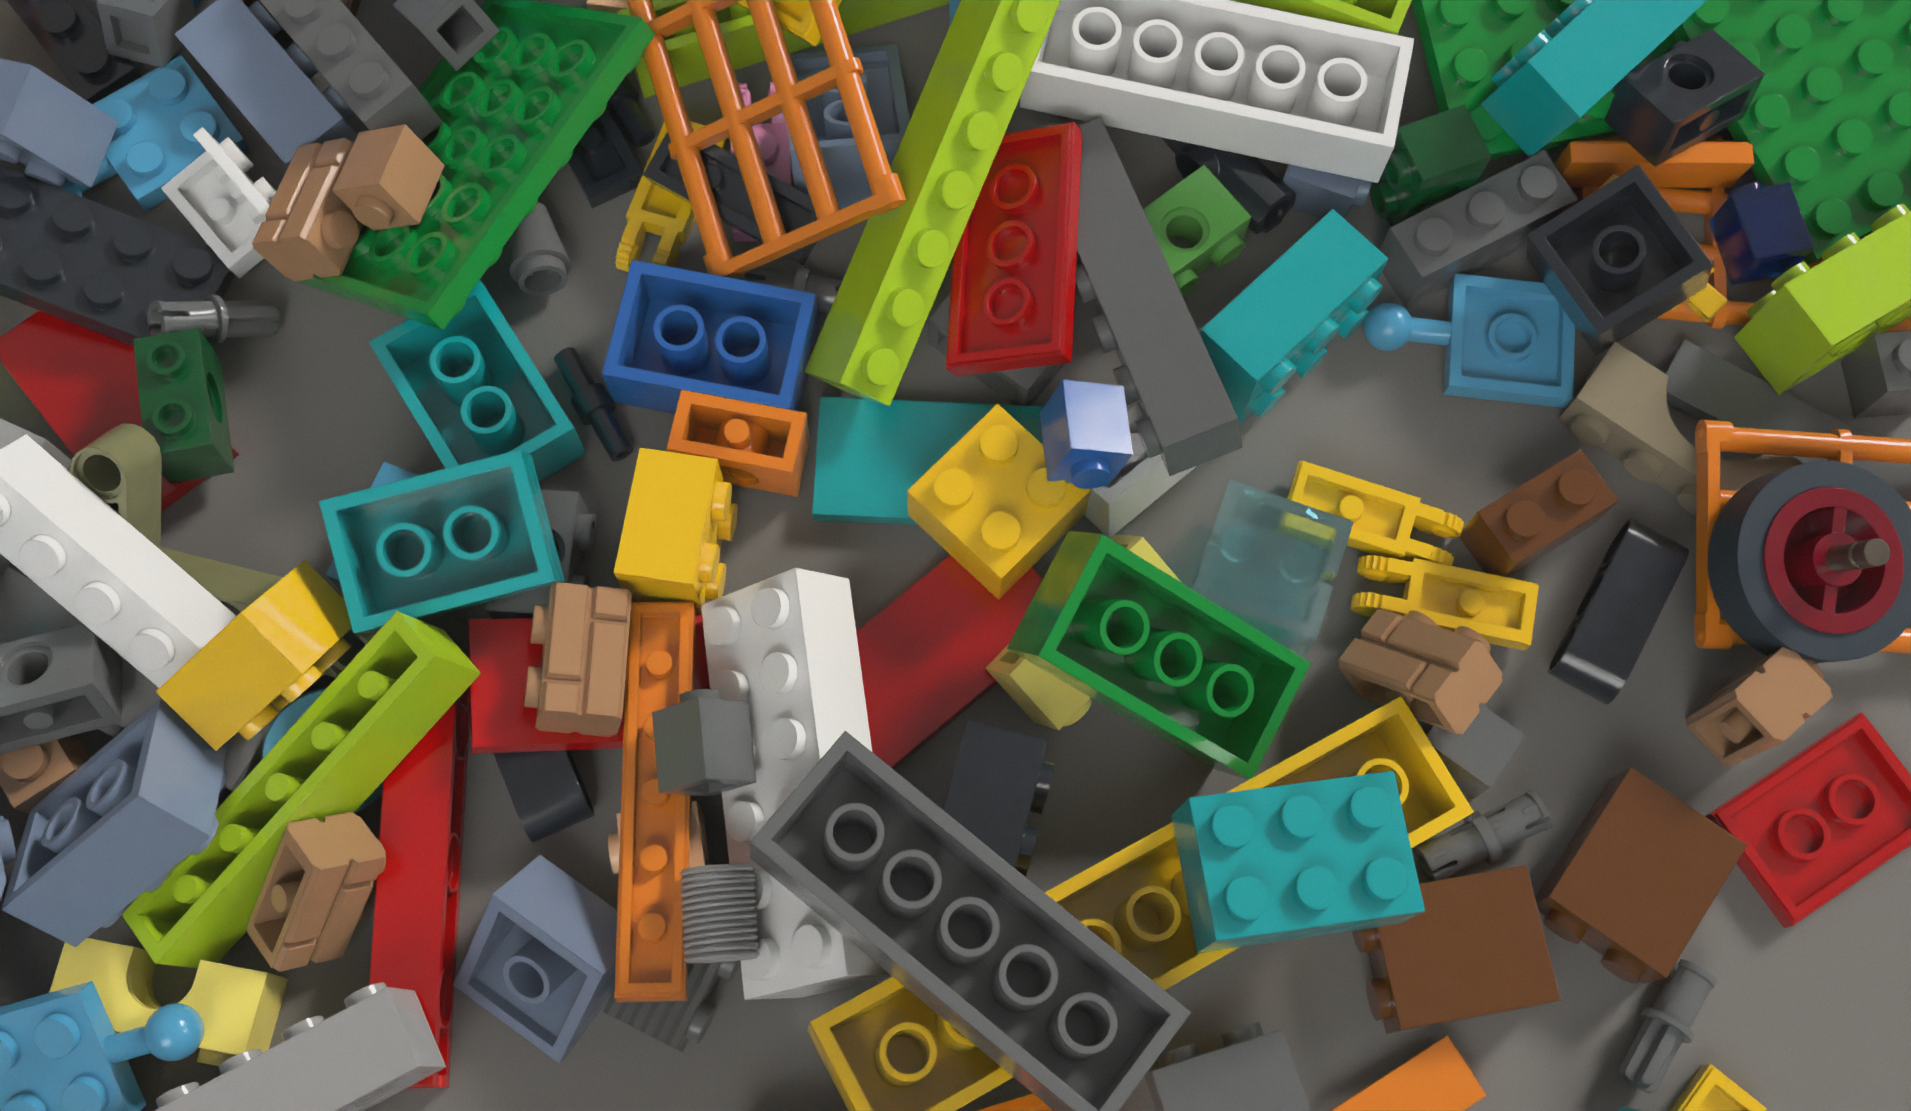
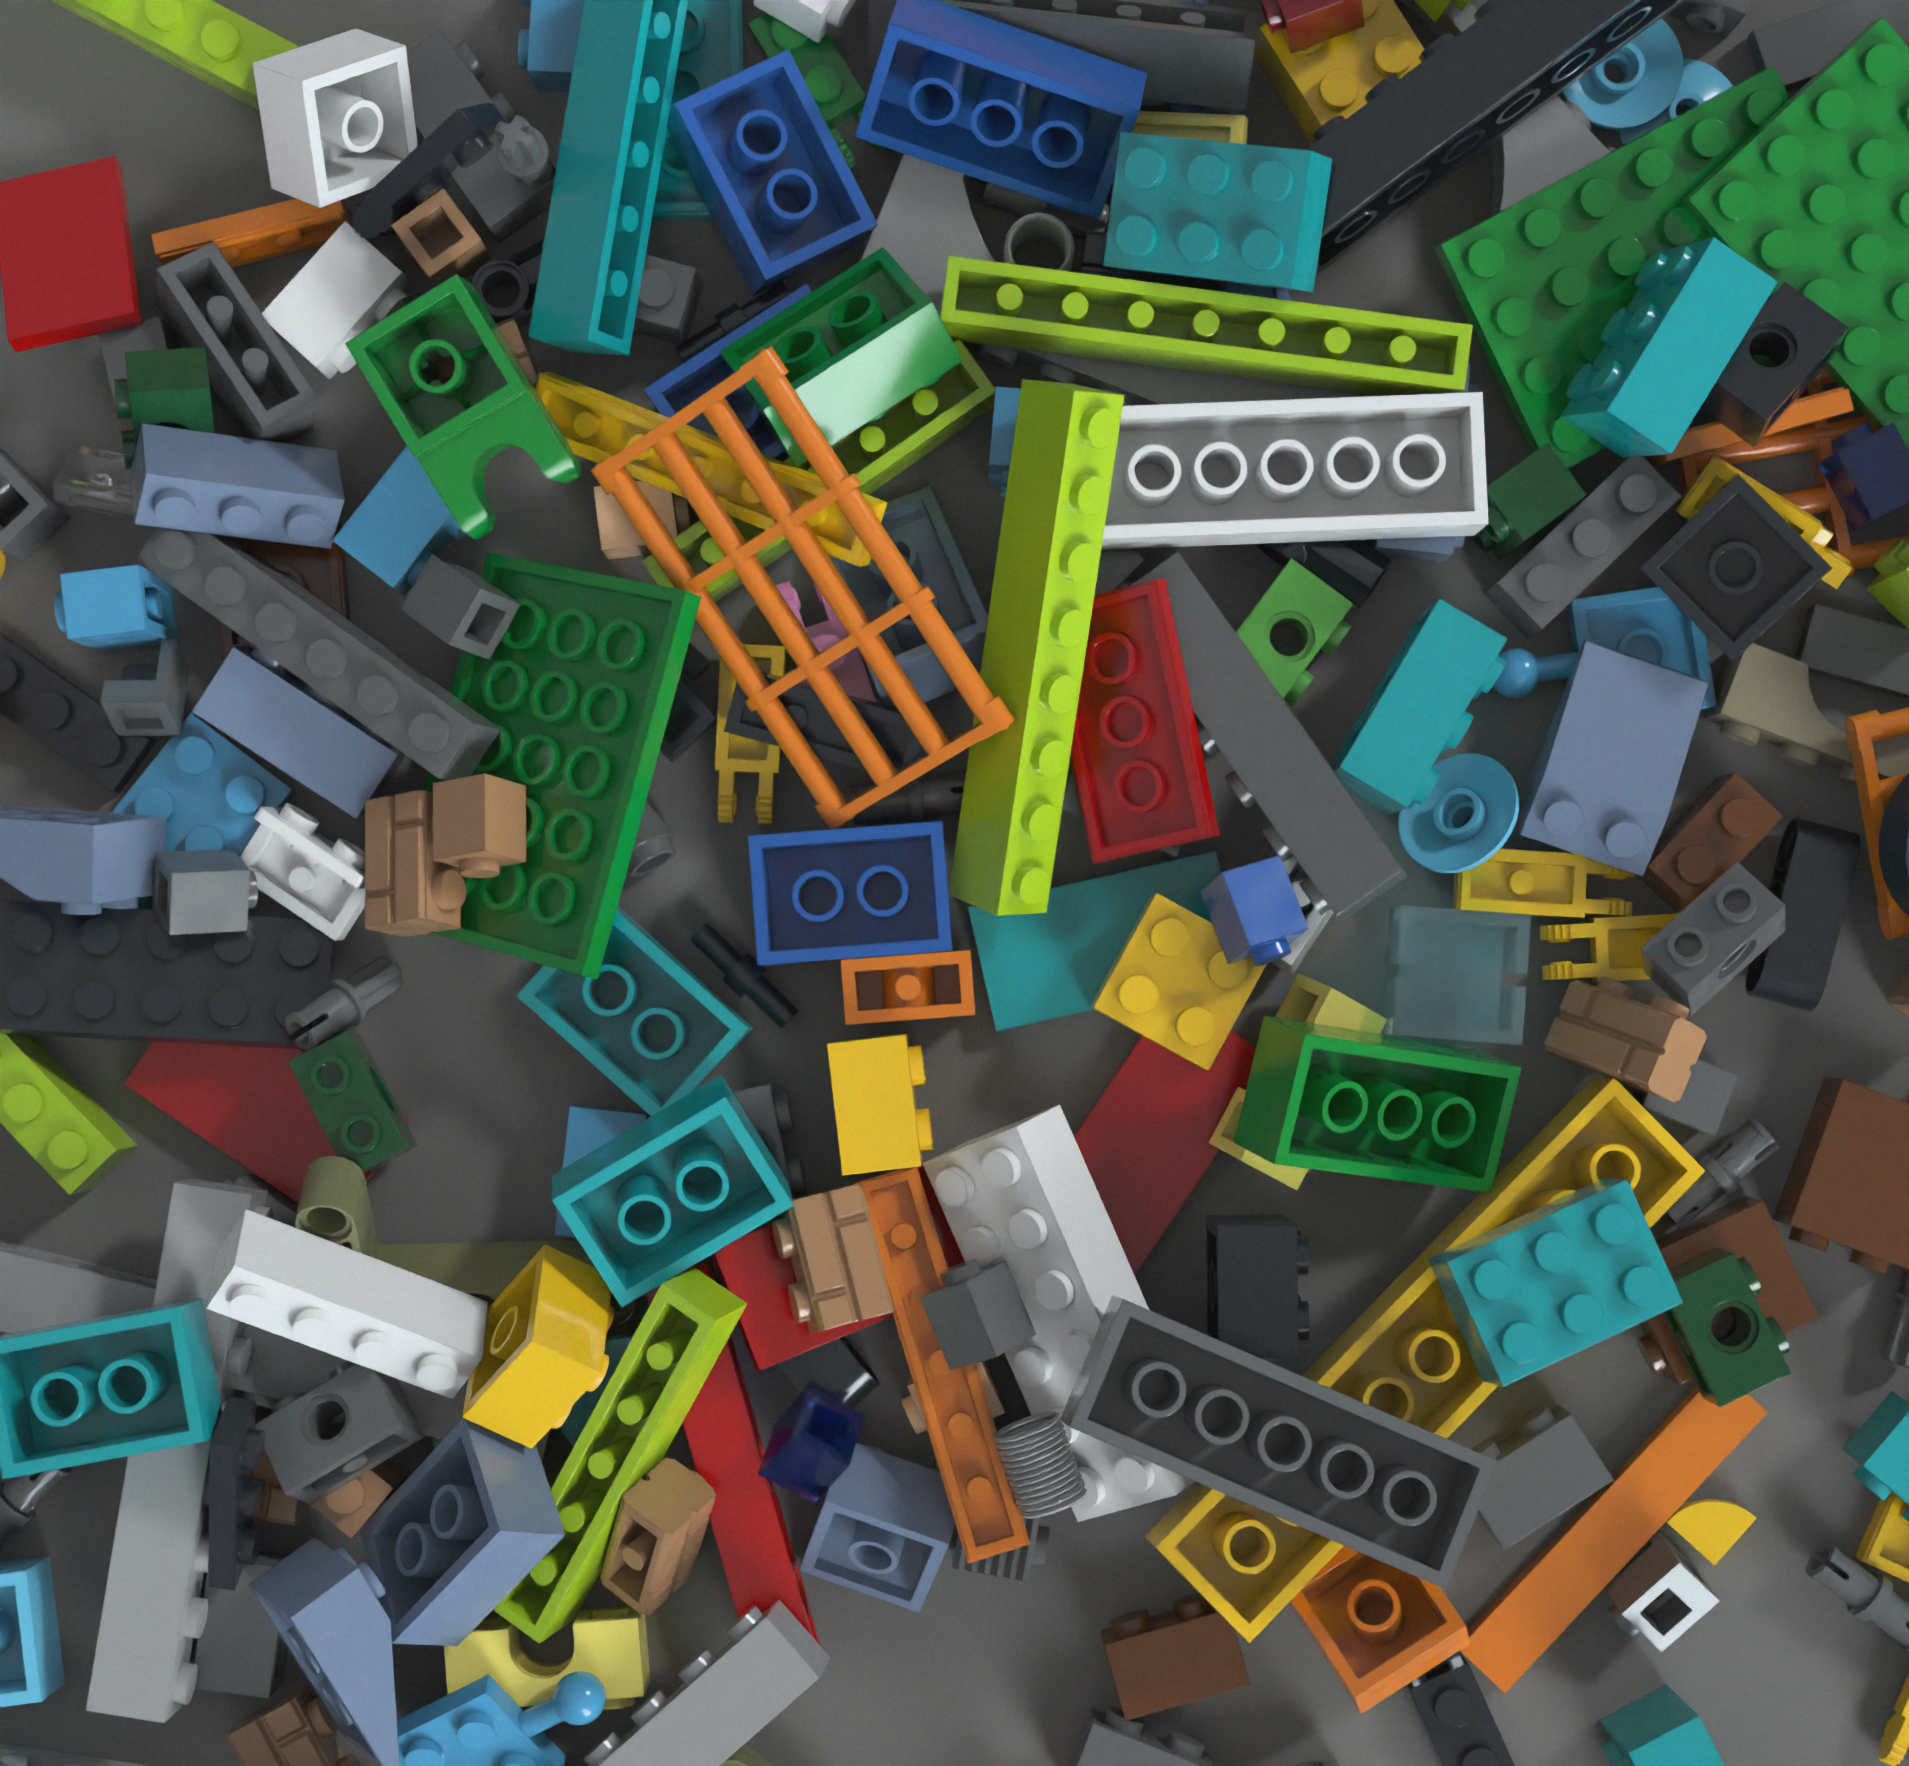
camera: 15 degrees left, 15 degrees up
(123, 185) = (203, 891): none -> brick
(499, 841) = (811, 1445): none -> clear blue brick
(1306, 428) = (1466, 788): none -> medium azure dish
(1442, 1008) = (1755, 1349): none -> dark green brick
(1464, 411) = (1612, 758): none -> sand blue slope
(1530, 590) = (1714, 938): none -> dark grey brick

